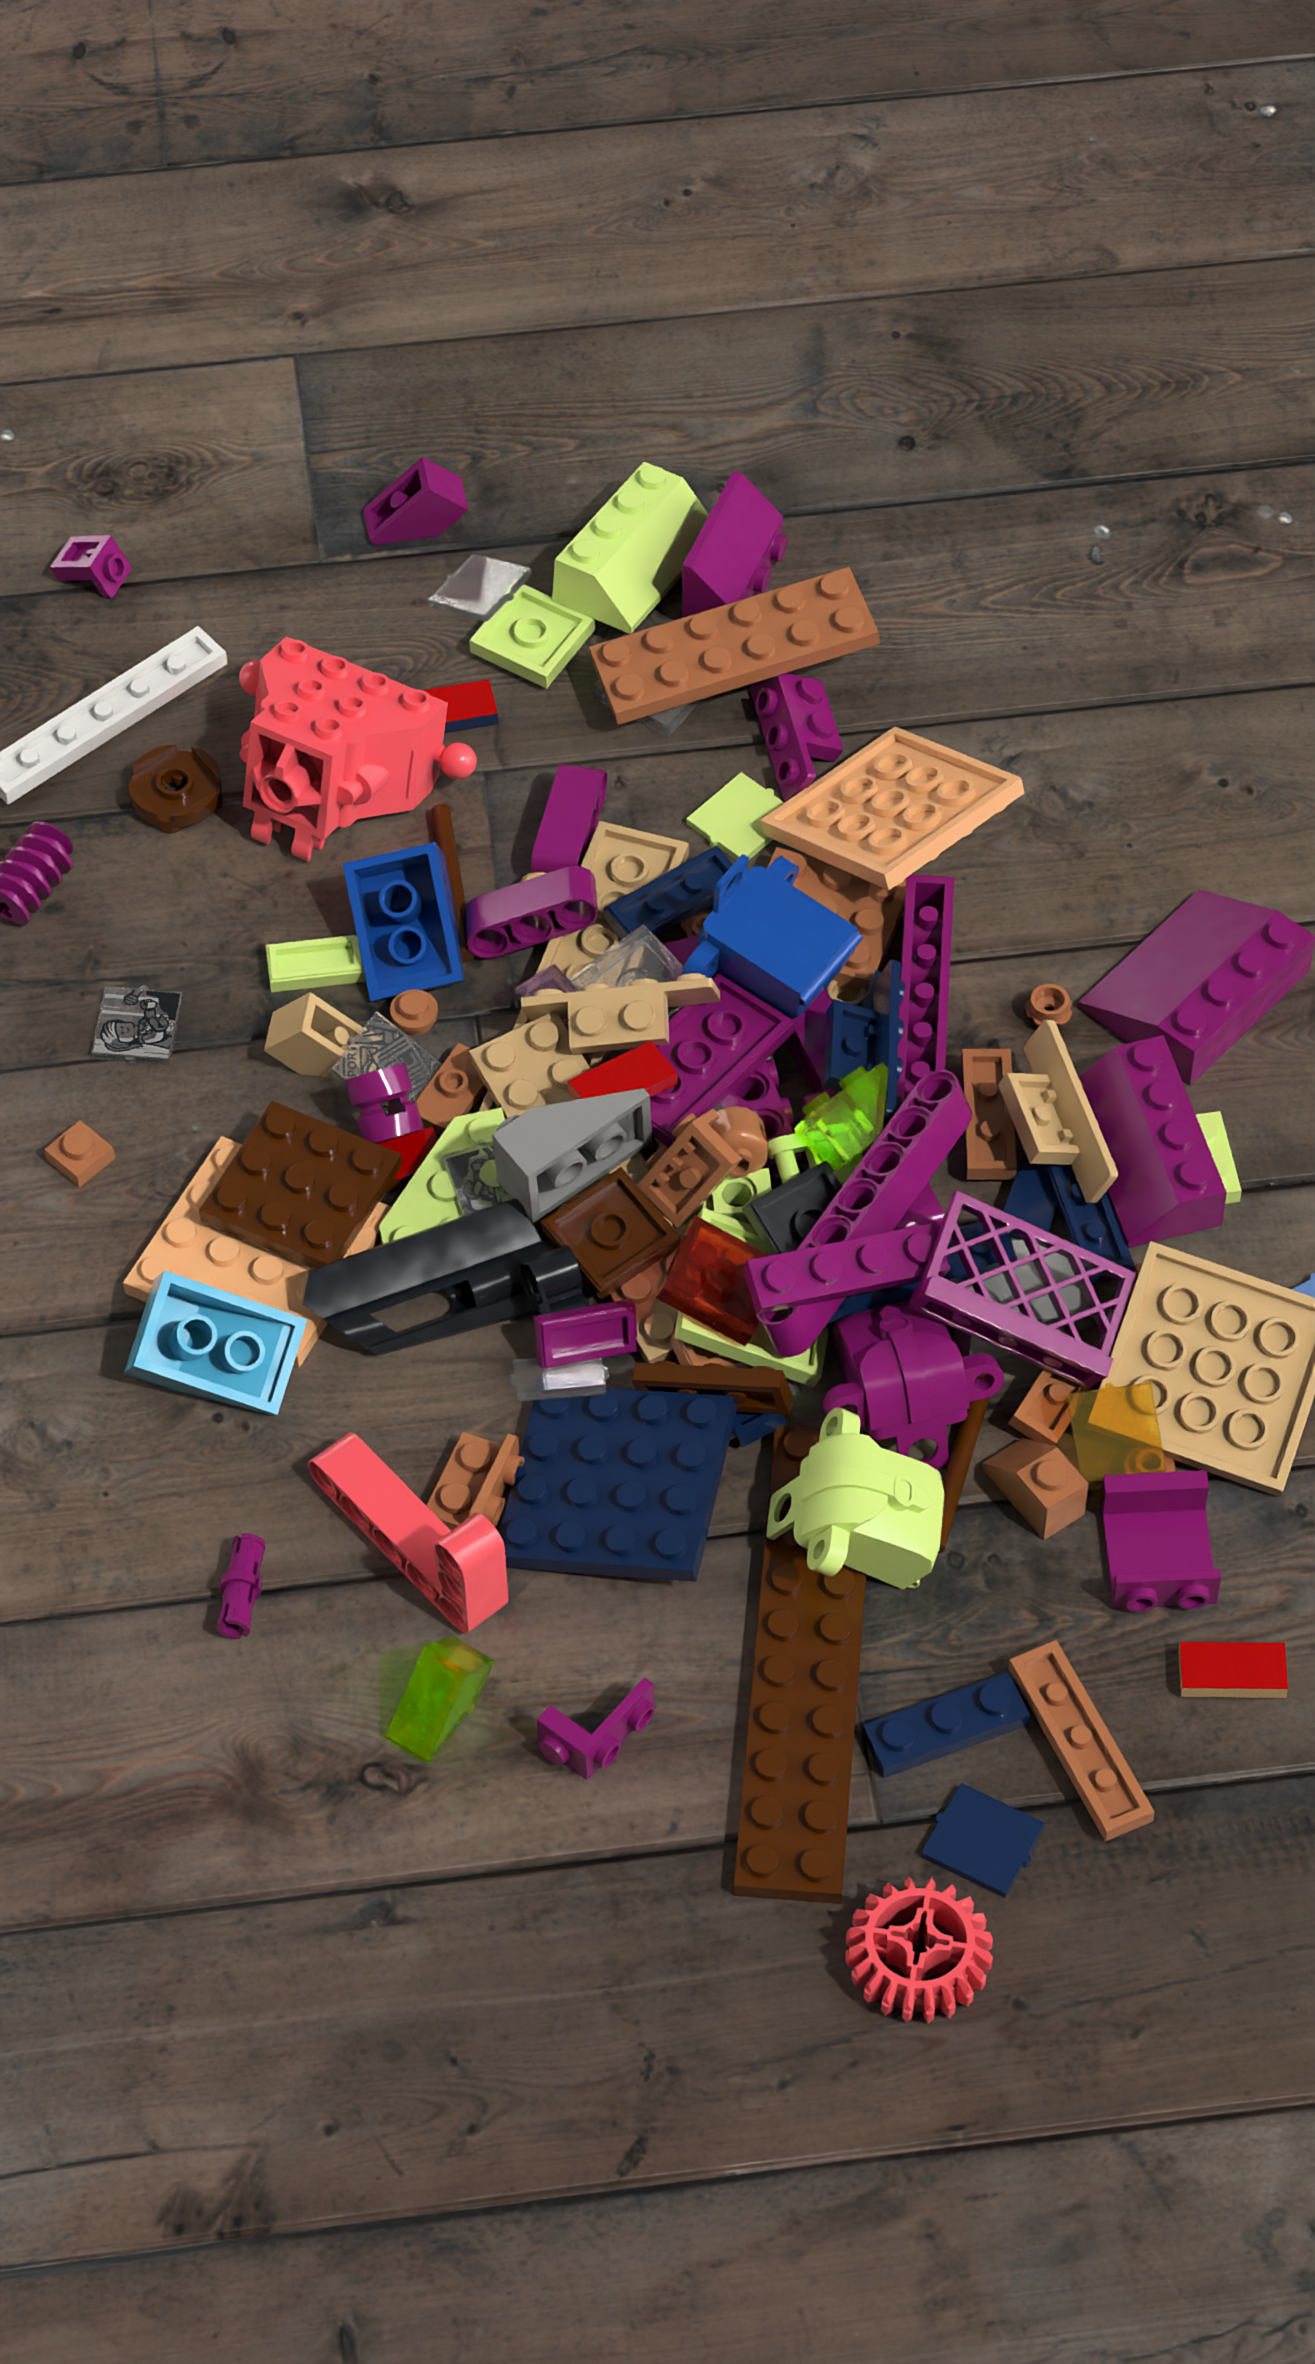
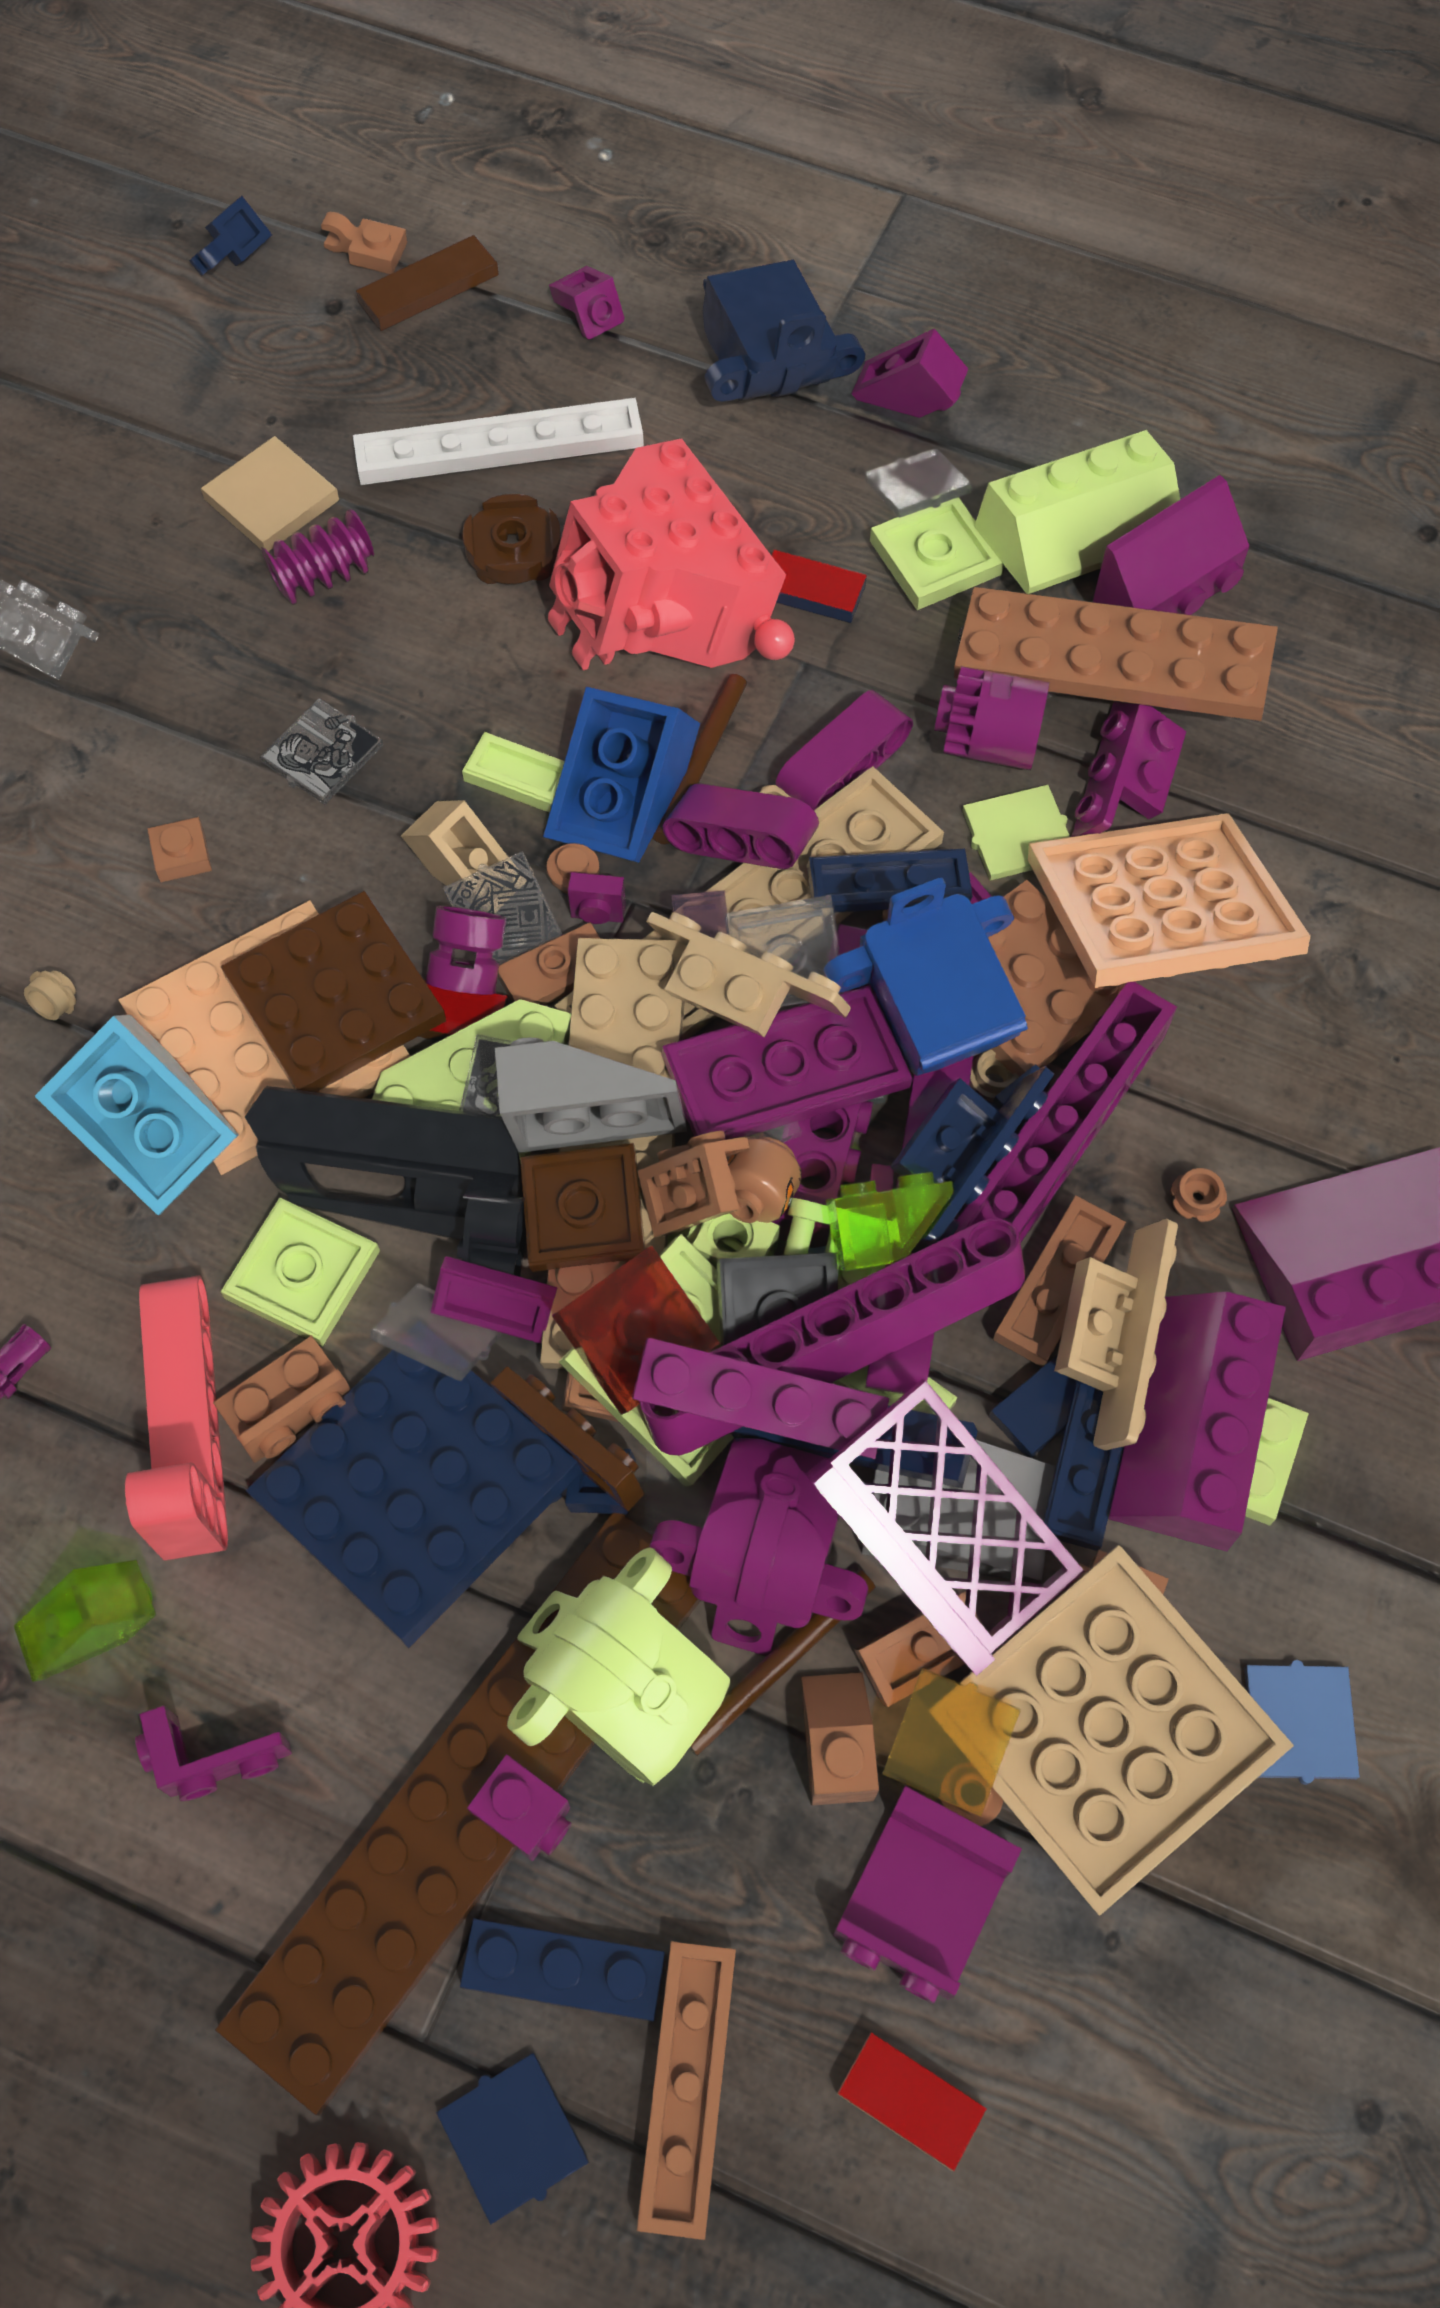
camera: 30 degrees right, 10 degrees up
(63, 1307) = (50, 994): none -> tan plate
(280, 522) = (770, 334): none -> dark blue piece
(416, 1397) = (300, 1271): none -> yellowish green tile
(452, 1021) = (597, 898): none -> magenta plate
(633, 1070) = (690, 1053): red tile -> none
(671, 738) = (992, 717): none -> magenta gear
(850, 1635) = (522, 1809): none -> magenta bracket

